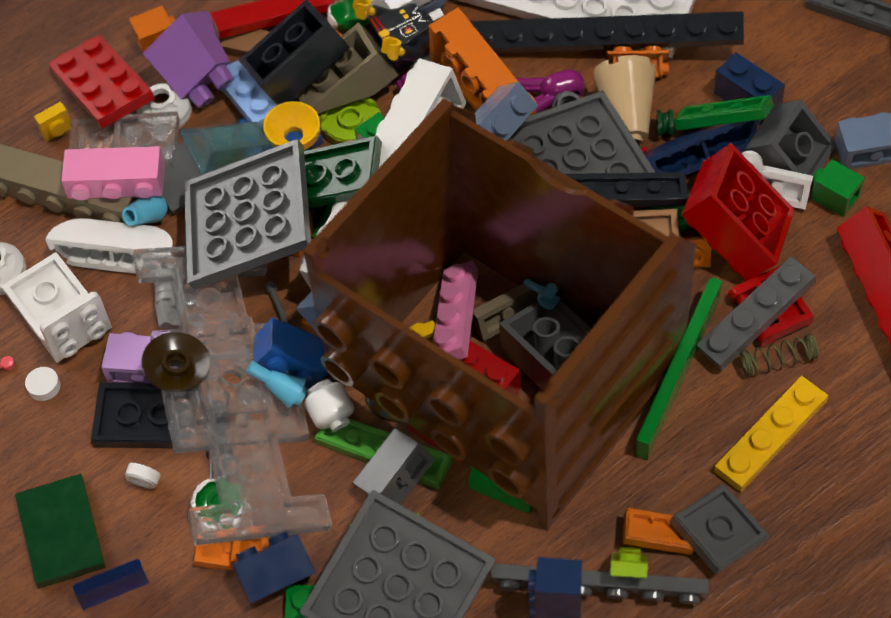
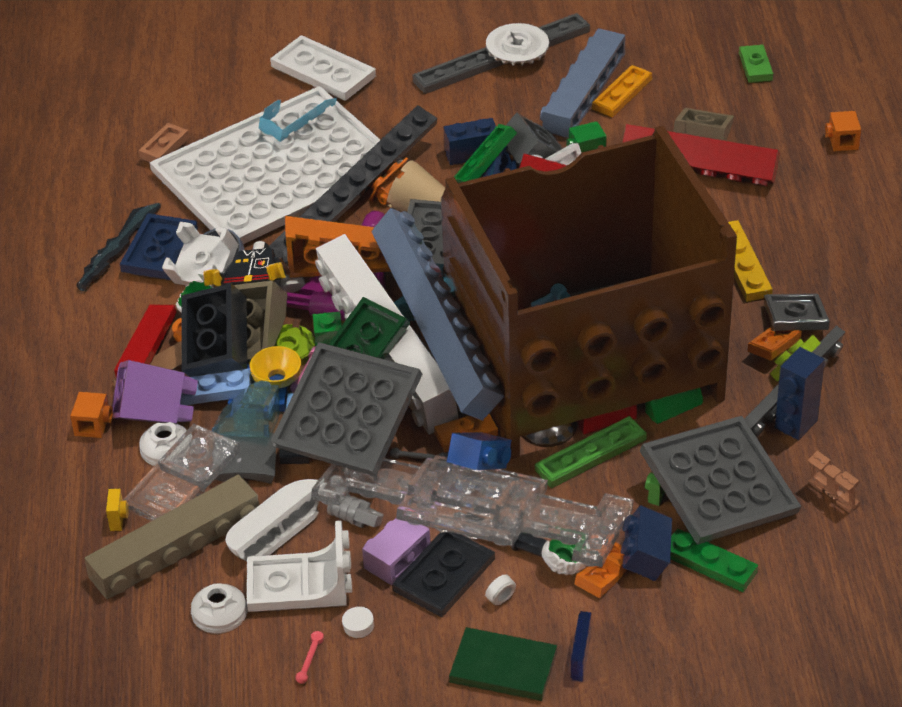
camera: 60 degrees left, 15 degrees down
(101, 81) = (108, 462): red plate -> none
(113, 172) = (221, 476): bright pink brick -> none
(145, 211) = (257, 480): medium azure cone -> none
(176, 350) = (445, 498): dark brown dish -> none
(285, 387) = (509, 463): medium azure cone -> none
(329, 405) = (539, 451): white head -> none
(395, 467) = (620, 444): hinge -> none

